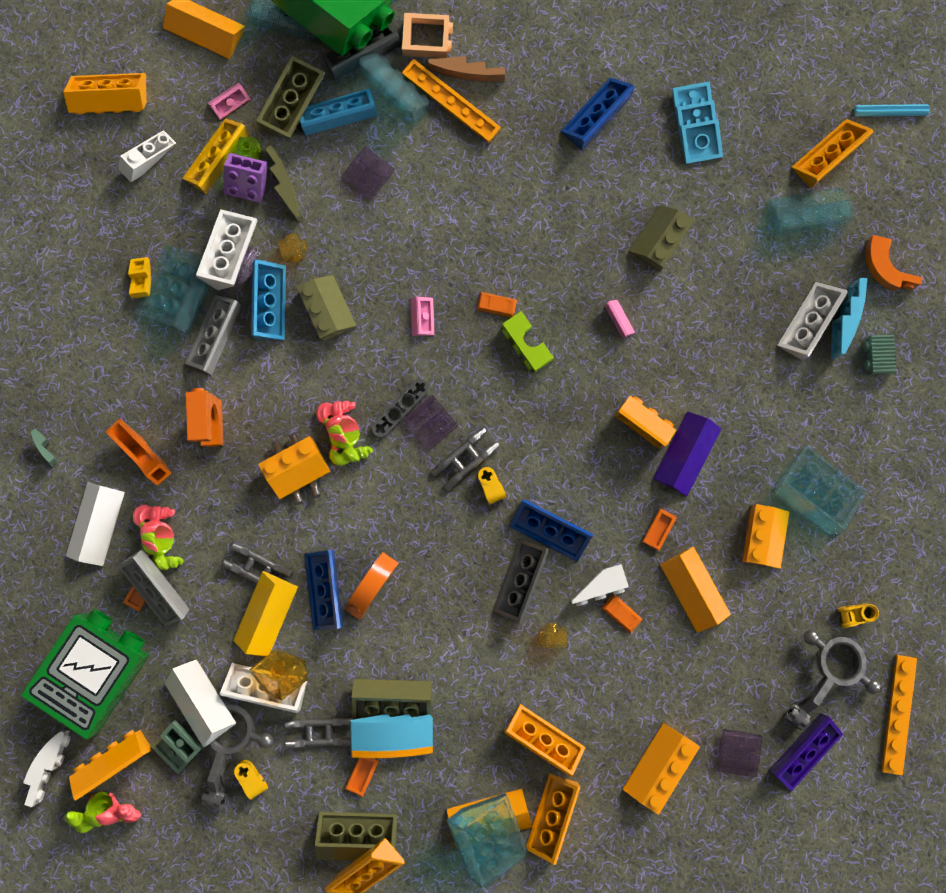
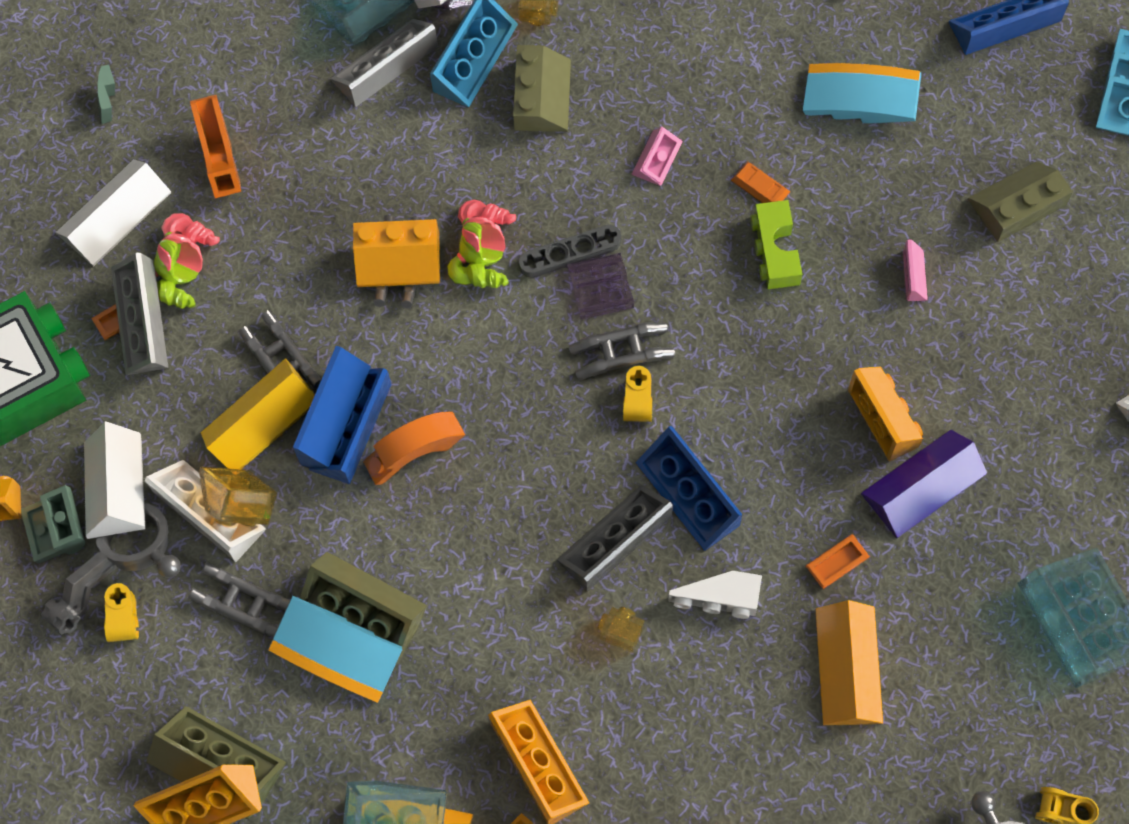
camera: 30 degrees right, 15 degrees down
(204, 418) = (320, 135): orange arch -> none
(309, 590) = (330, 409): none -> blue slope
(361, 775) = (268, 684): orange tile -> none
(530, 210) = (862, 92): none -> medium azure slope
(622, 613) = (730, 648): orange tile -> none
(765, 536) = (984, 640): light orange slope -> none

